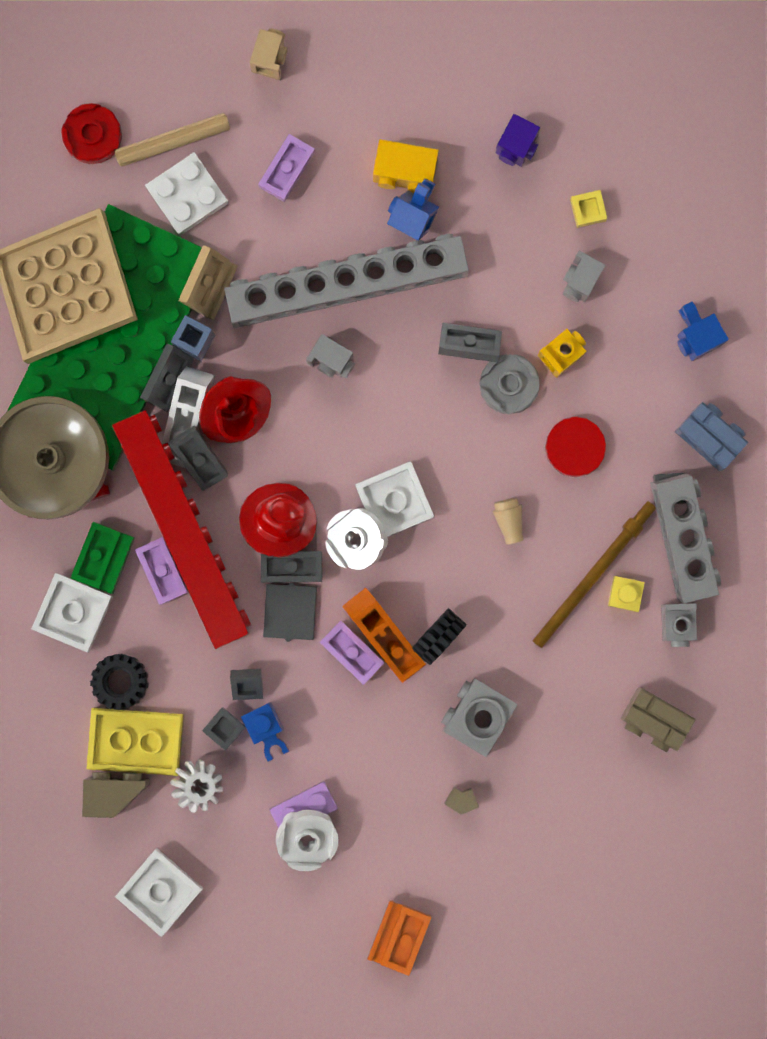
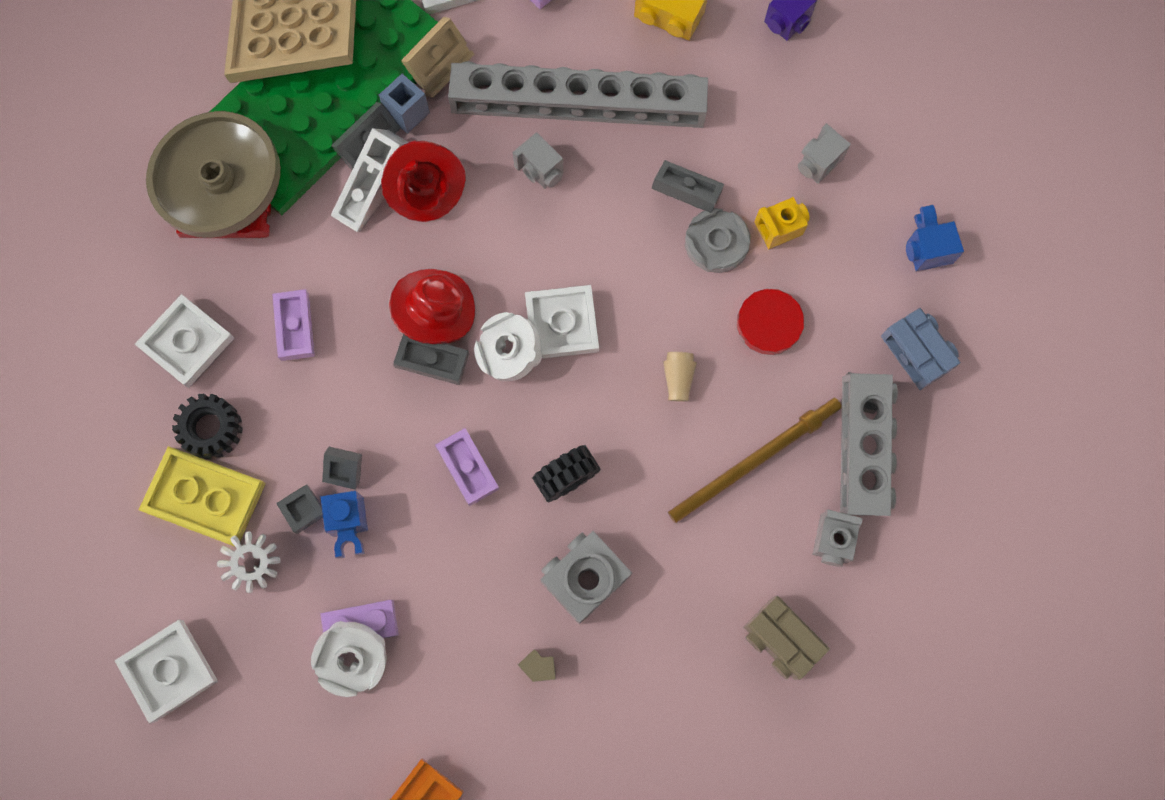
camera: 15 degrees right, 10 degrees down
(102, 558) = (237, 294): green plate -> none
(109, 796) = (152, 547): dark tan slope -> none
(180, 528) = (327, 288): red brick -> none
(198, 458) = (370, 220): dark grey plate -> none
(289, 612) = (415, 407): dark grey piece -> none
(383, 635) = (507, 458): orange slope -> none
(413, 212) = (666, 45): blue brick -> none
(588, 208) = (845, 93): light yellow plate -> none
(626, 594) = (785, 490): light yellow plate -> none

